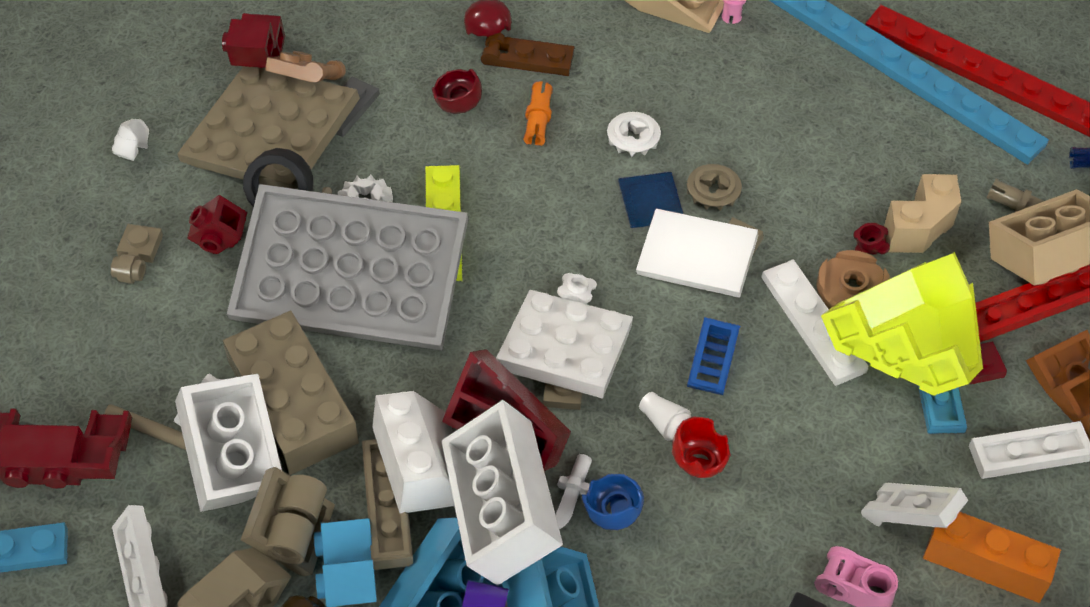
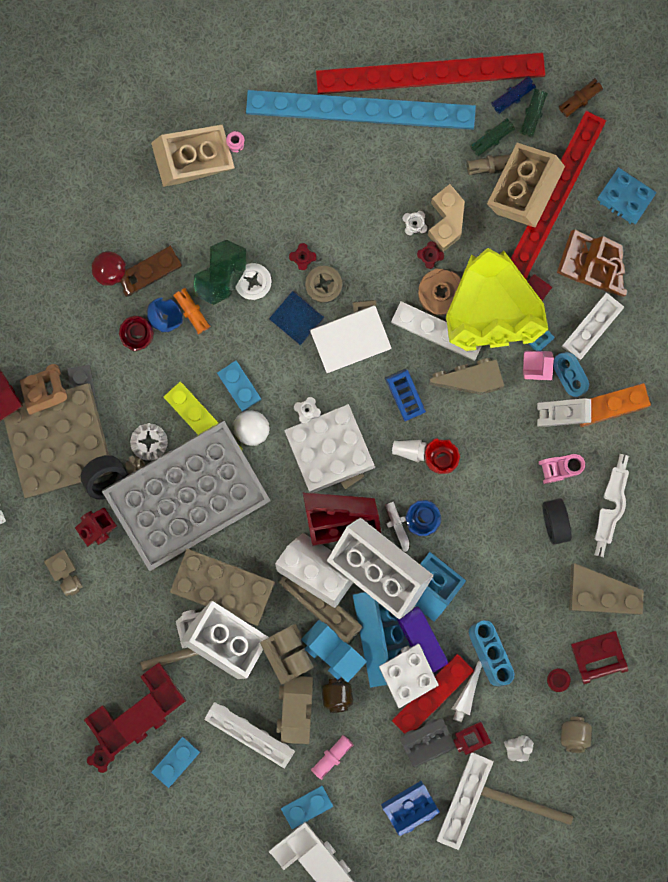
camera: 35 degrees left, 30 degrees up
(493, 262) = (251, 427): none -> white hair
(500, 88) = (158, 308): none -> blue hair
(520, 216) = (239, 386): none -> dark azure plate
(616, 96) = (224, 273): none -> clear green brick
(713, 153) = (302, 250): none -> dark red plate
(817, 396) = (477, 379): none -> dark tan slope
(878, 192) = (410, 218): none -> white plate
(920, 439) = (538, 365): none -> bright pink panel
(967, 479) = (570, 375): none -> dark azure plate
(1046, 180) = (492, 137): none -> clear green pin

